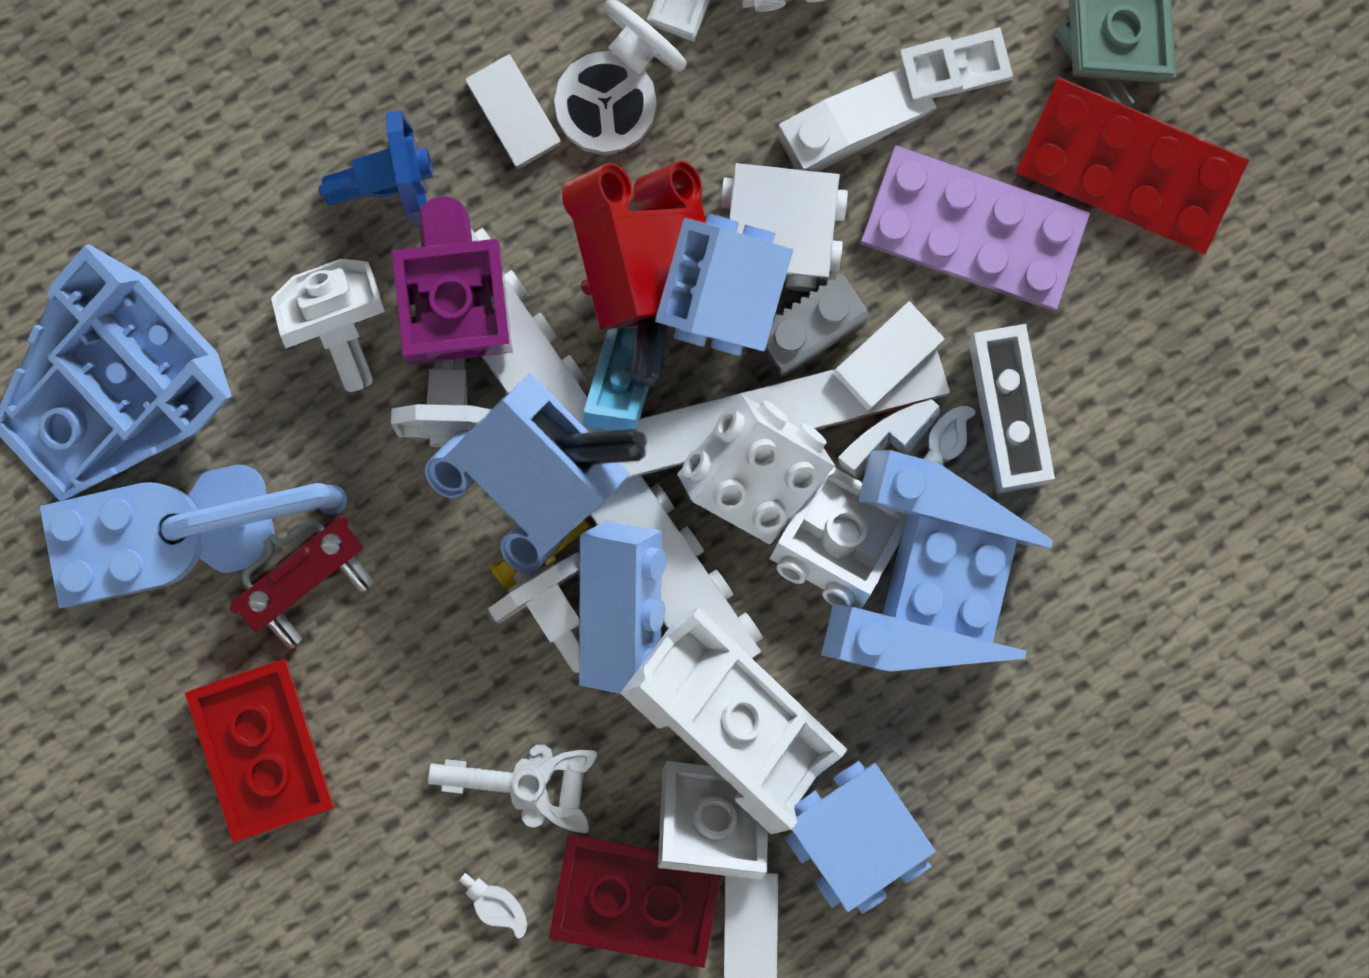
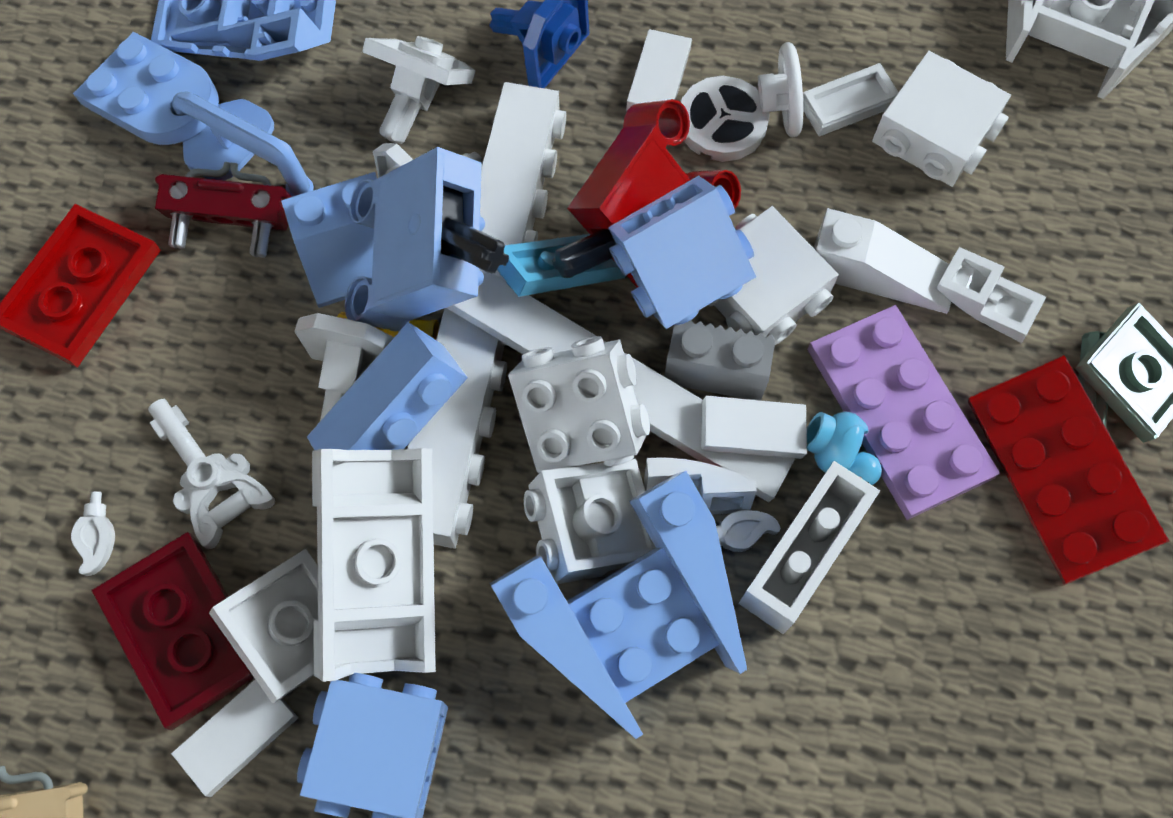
camera: 45 degrees right, 15 degrees down
(421, 521) = (328, 241): none -> light blue slope
(451, 289) = (496, 104): magenta brick -> none
(959, 309) = (839, 440): none -> medium azure animal

